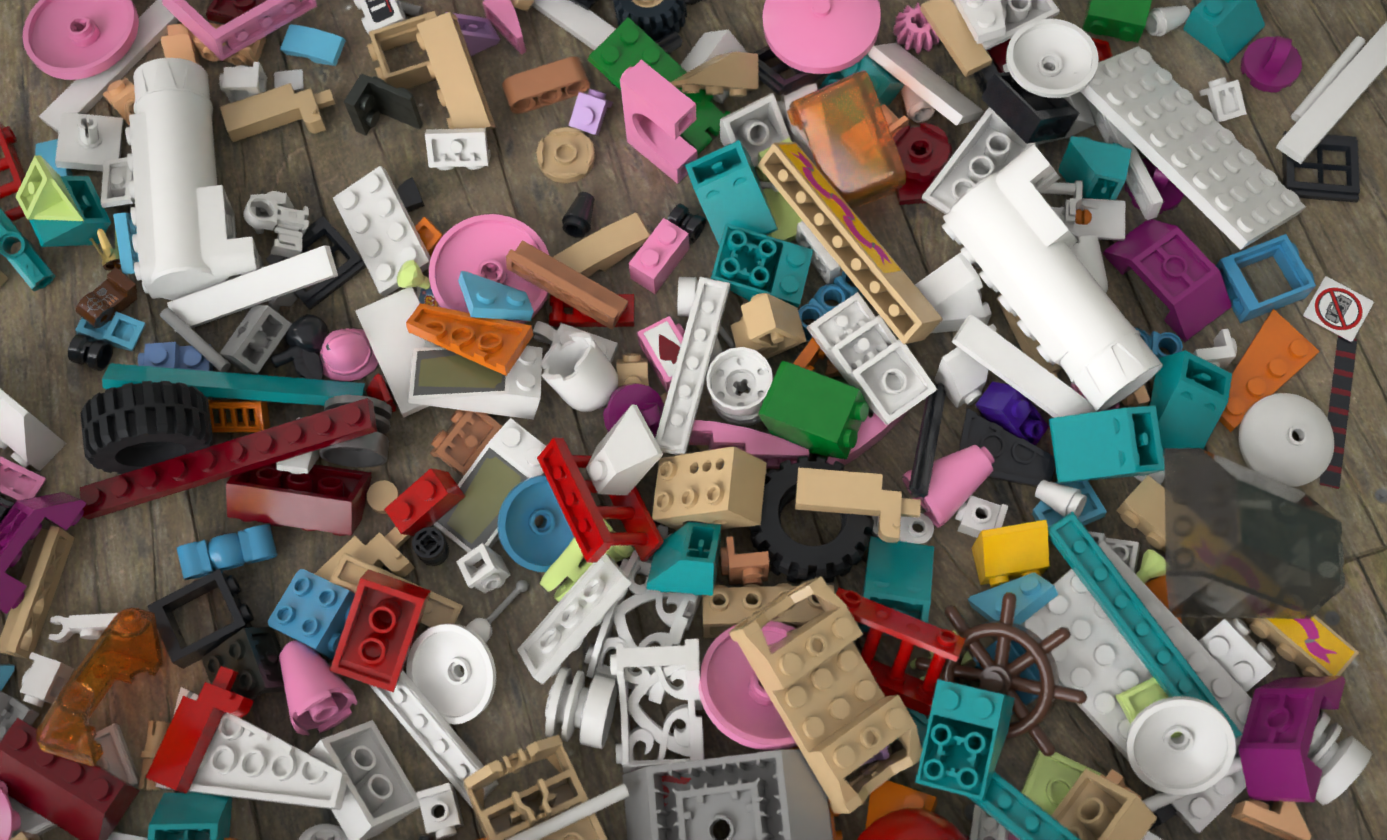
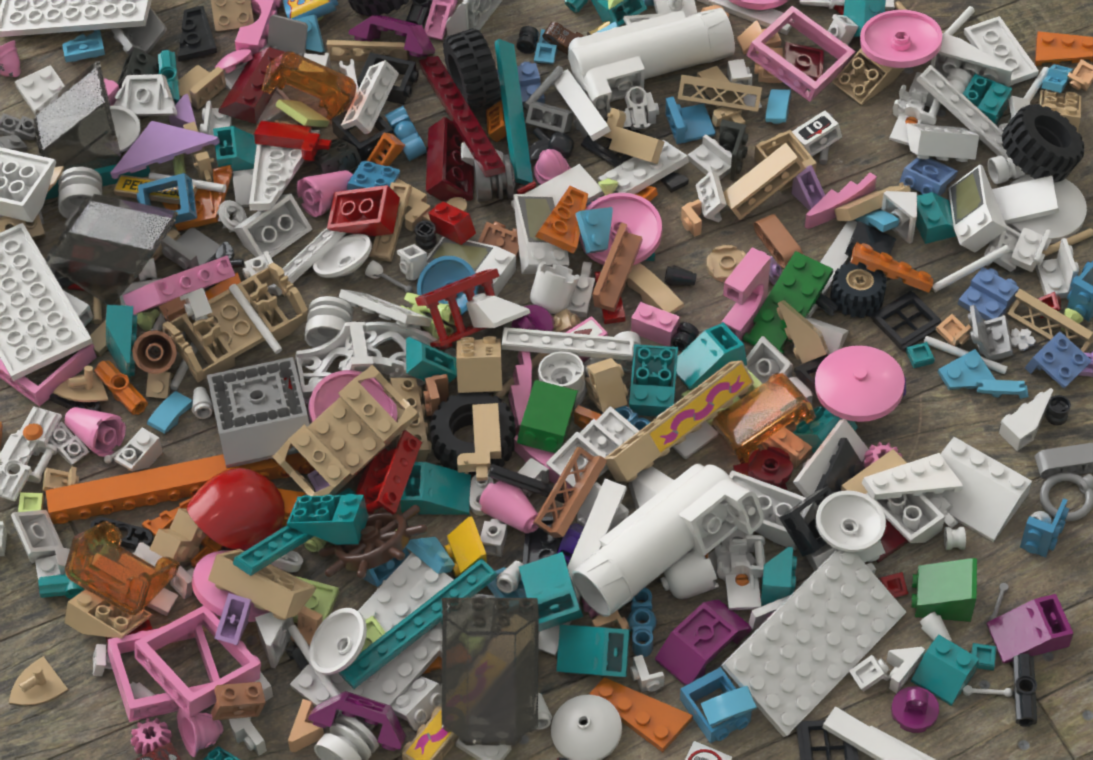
camera: 80 degrees right, 15 degrees down
(128, 578) = (403, 67): none -> black window
(144, 709) = (302, 113): none -> yellowish green tile
(151, 586) = (370, 97): none -> white fence
(247, 568) = (384, 143): none -> orange slope
(264, 821) = (242, 186): none -> white slope
(268, 104) = (721, 86): none -> tan fence
(309, 160) = (688, 122): none -> dark azure bracket
(343, 229) = (630, 142): none -> tan piece
(383, 141) = (711, 157): none -> white bracket
(485, 184) = (690, 217): none -> light nougat bracket
(889, 454) = (534, 470): none -> white brick
(937, 71) = (843, 467): none -> black wing
(956, 390) = (576, 497): none -> nougat fence
(1218, 57) = (905, 663): none -> white slope
(1292, 254) = (728, 705): none -> medium azure slope

